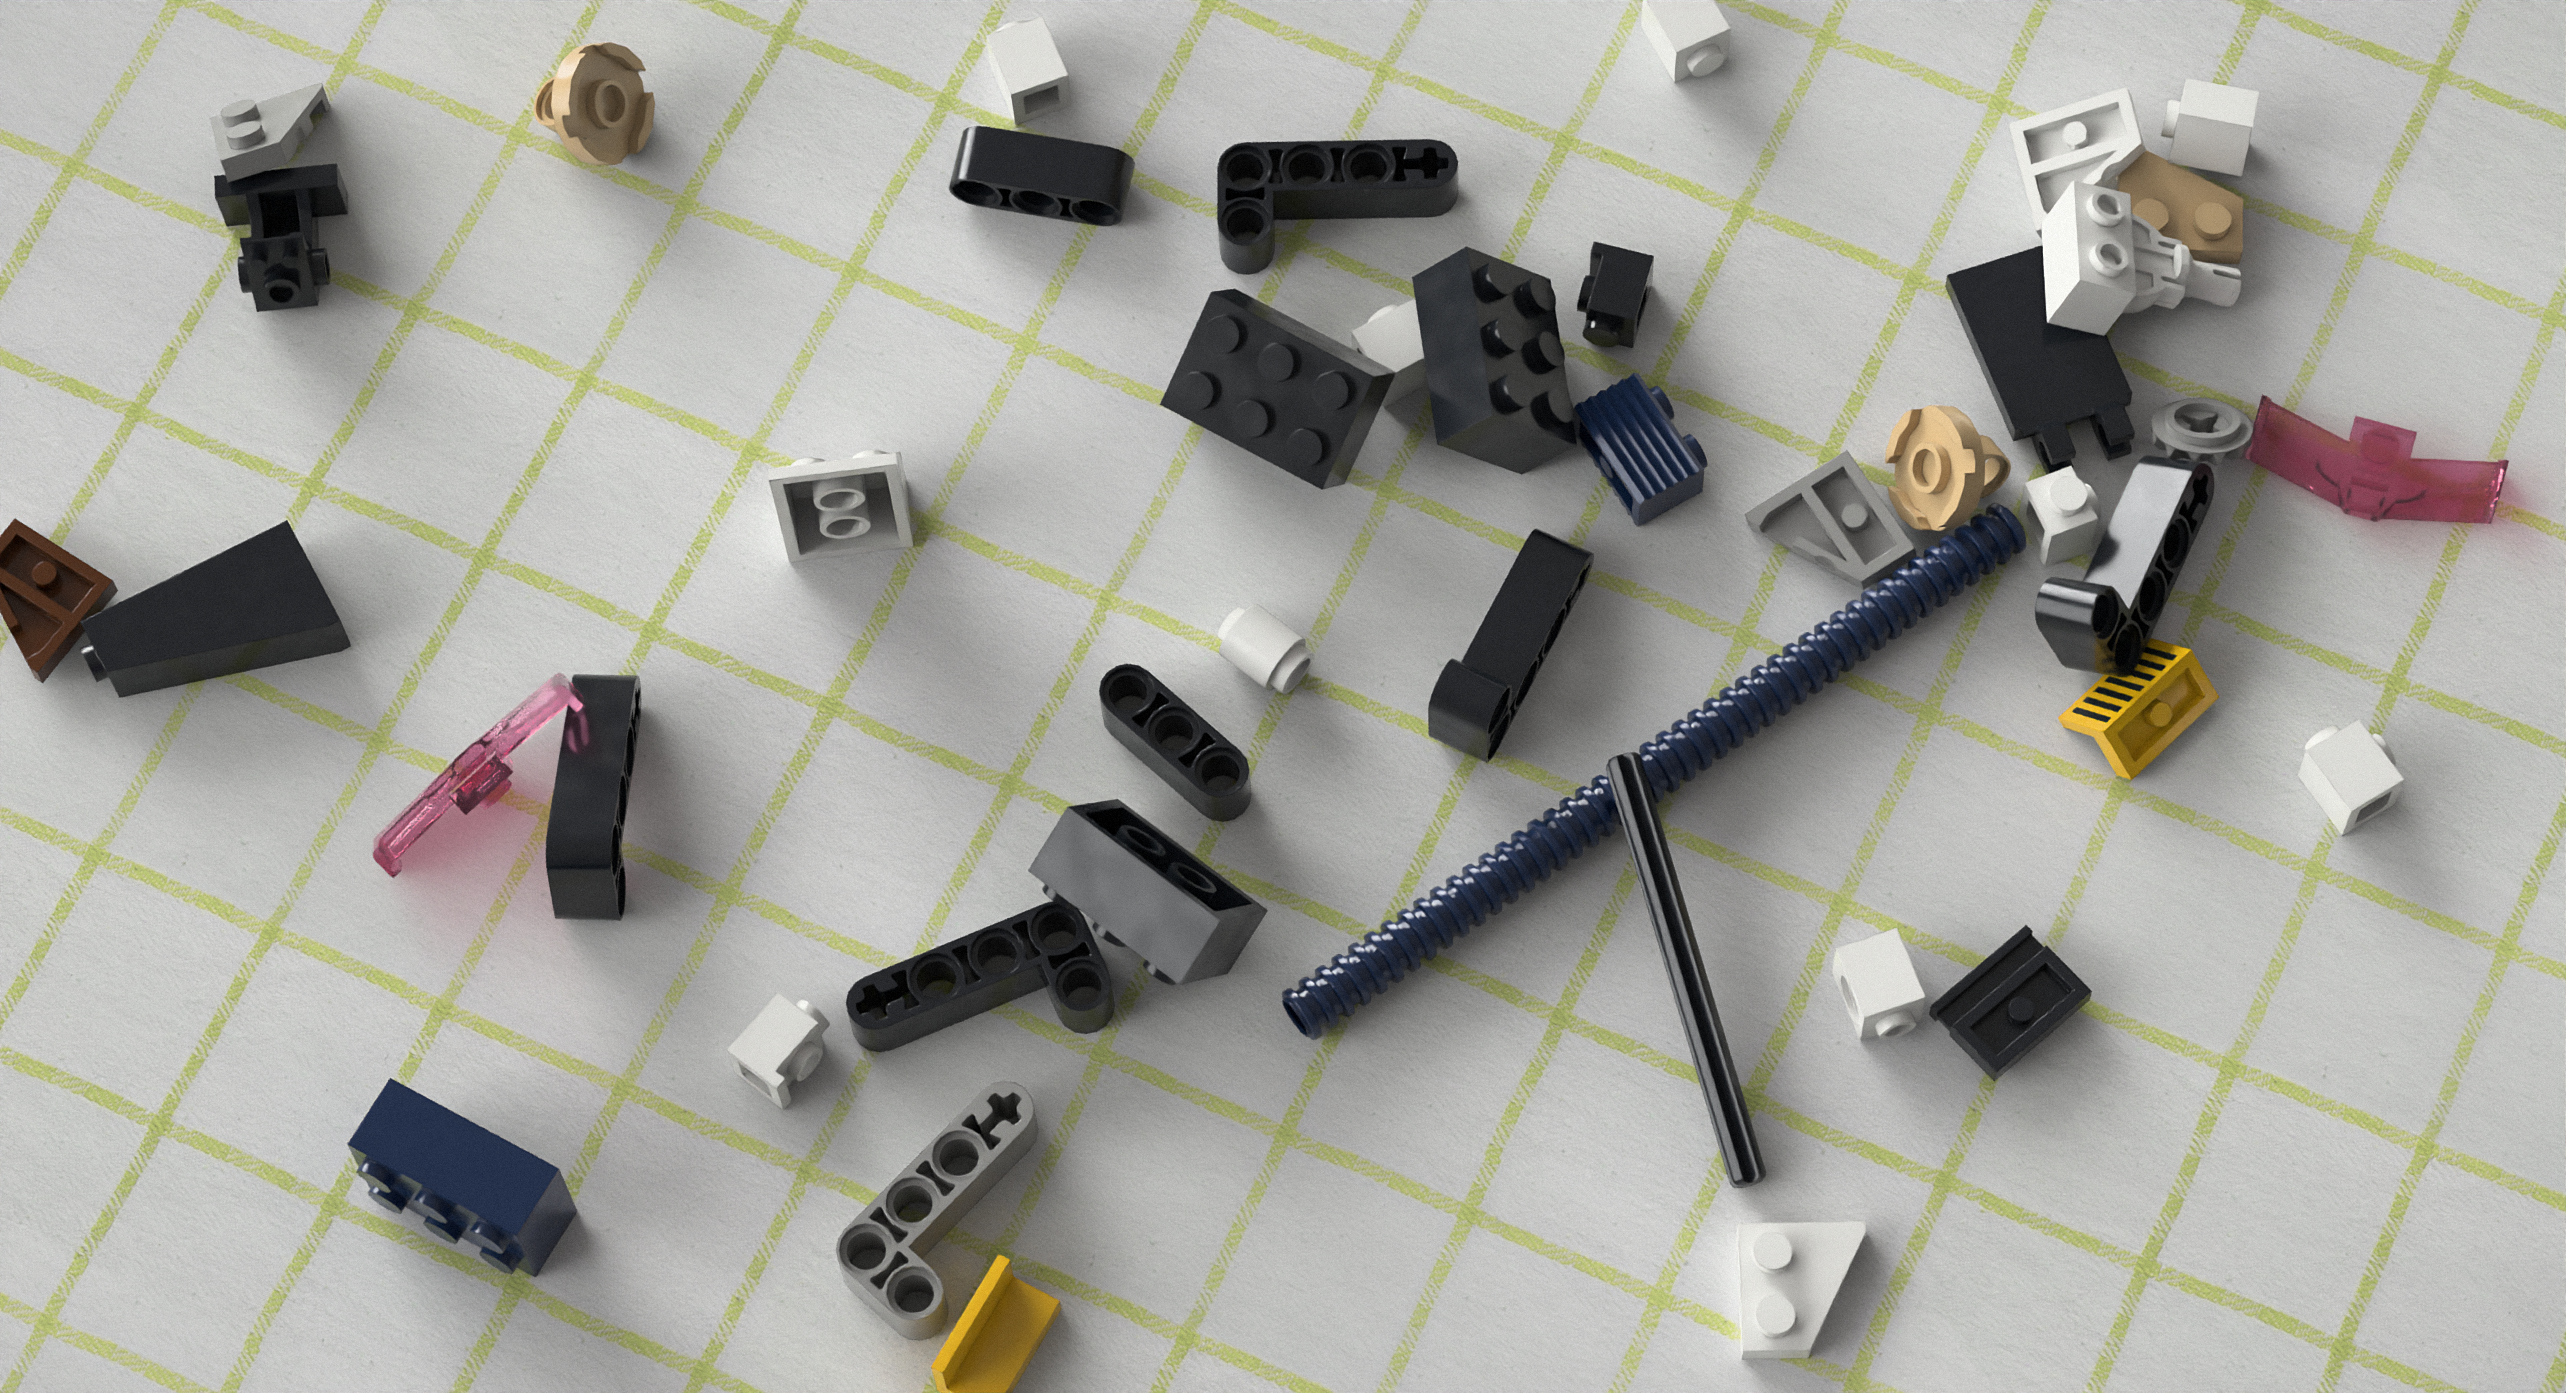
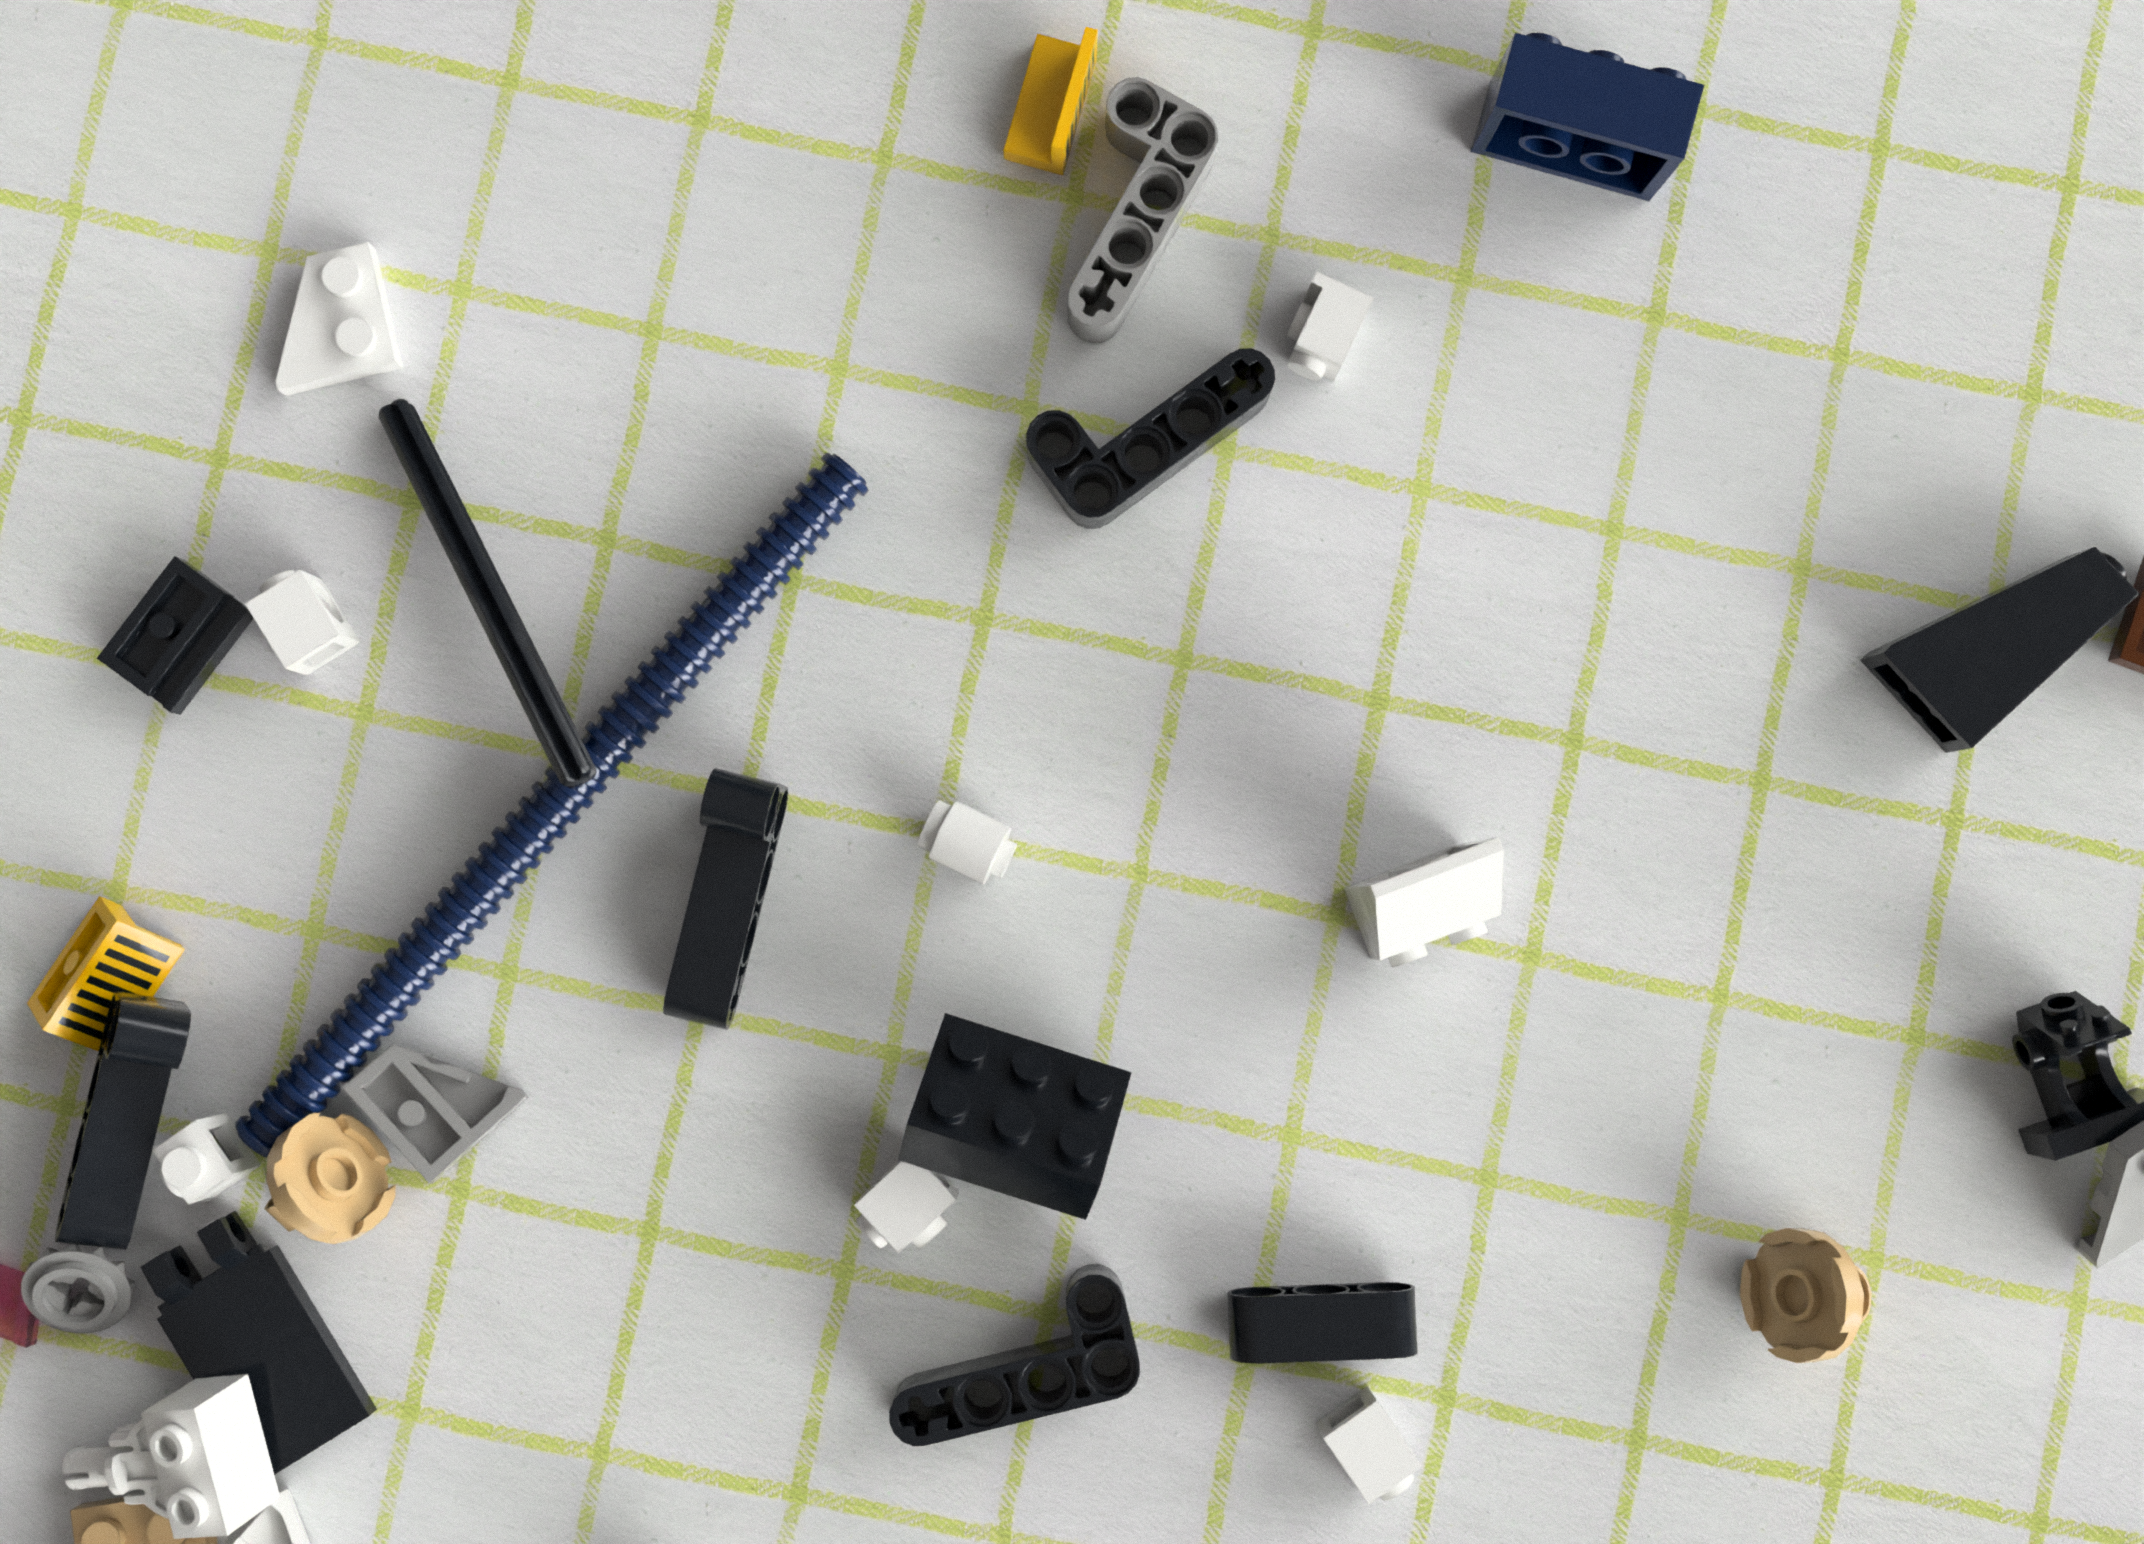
camera: 160 degrees right, 20 degrees up
(477, 773) = (1699, 531): clear pink plate -> none
(592, 799) = (1581, 537): black beam -> none
(1146, 892) = (1011, 538): brick -> none
(1182, 769) = (1013, 694): black beam -> none
(1494, 361) = (801, 1196): black brick -> none
(1615, 295) = (701, 1311): black brick -> none
(1639, 448) = (640, 1144): dark blue brick -> none

